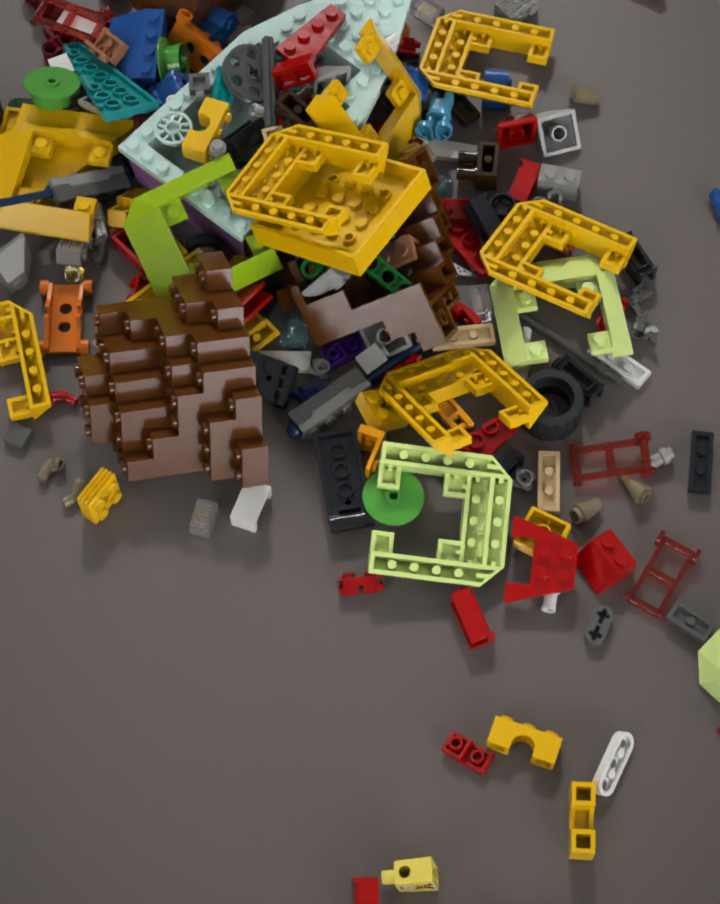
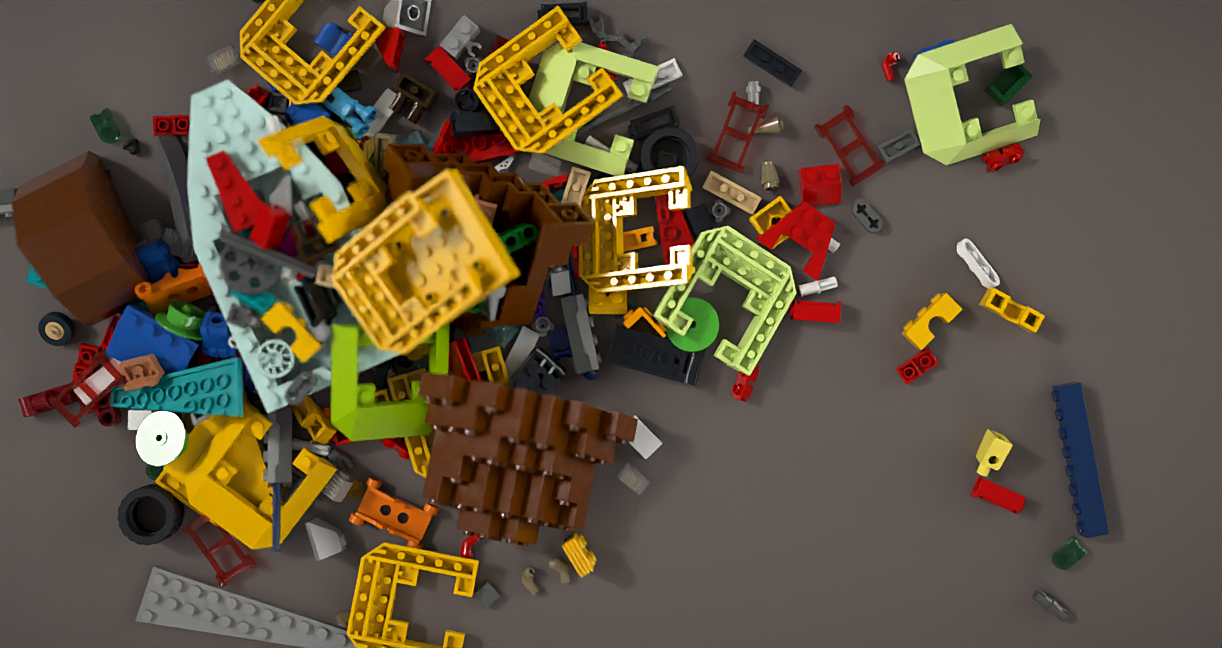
camera: 65 degrees left, 25 degrees up
(155, 158) = (304, 391): none -> dark grey beam
(498, 609) = (817, 286): none -> white axle

